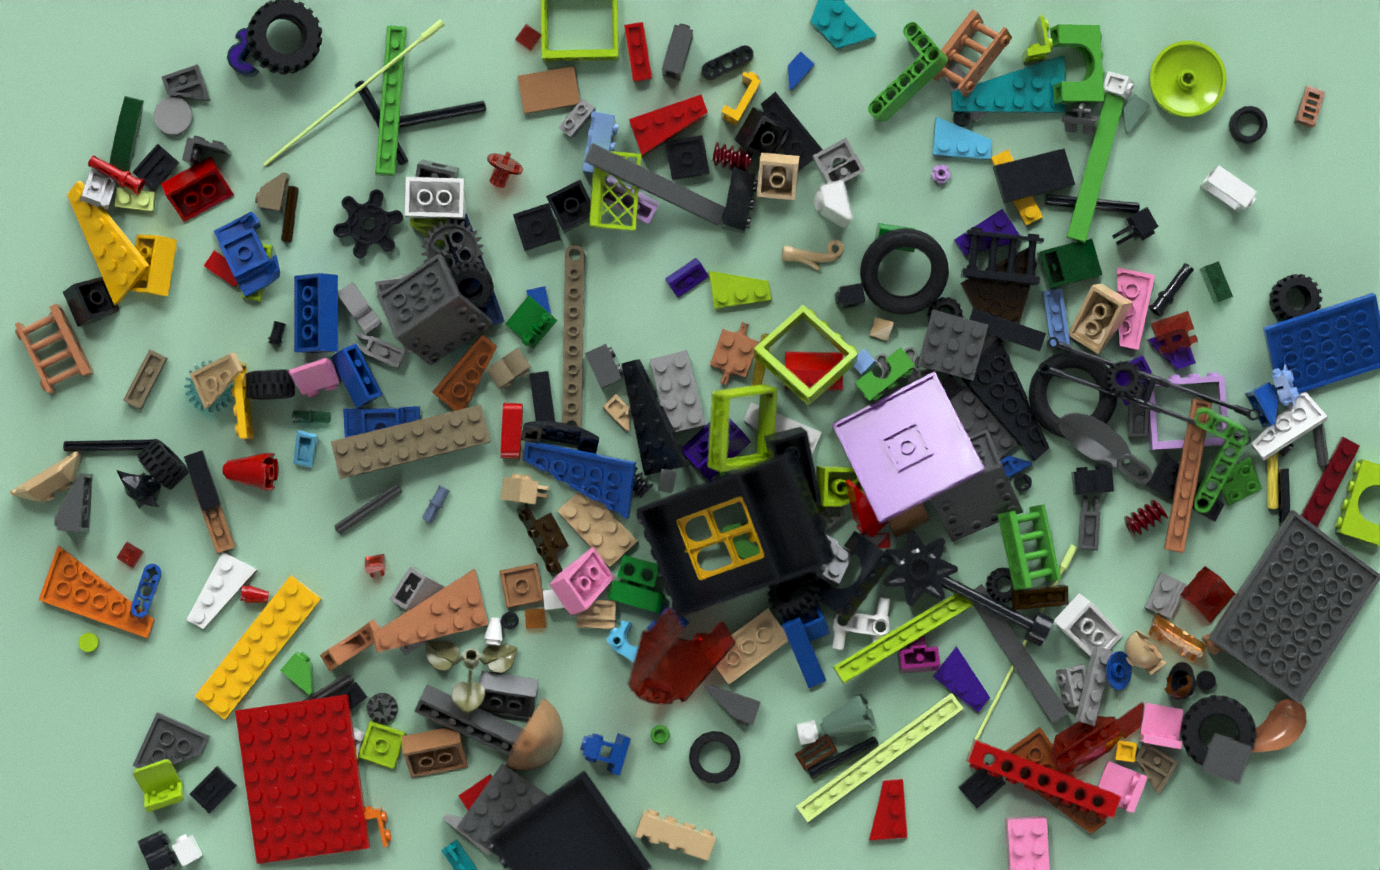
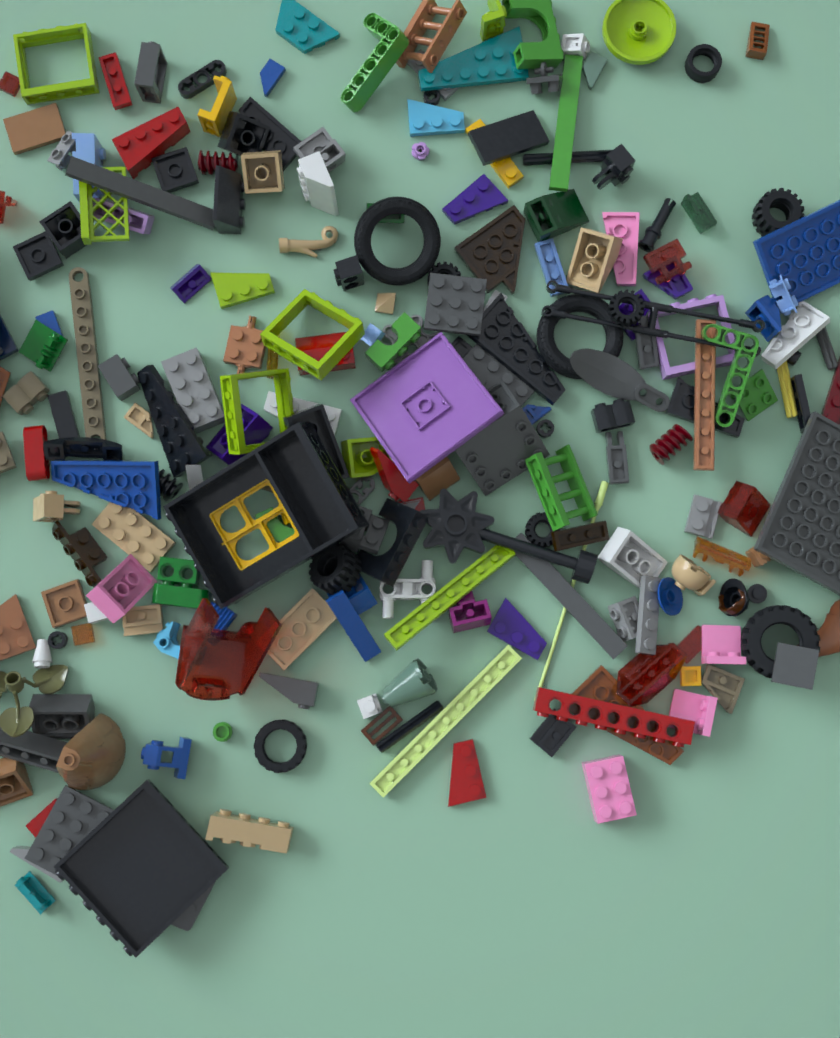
camera: 10 degrees left, 5 degrees down
(990, 273) = (482, 232): black fence -> none
(1009, 330) = (510, 284): black tile -> none
(1229, 189) = (696, 121): white window -> none

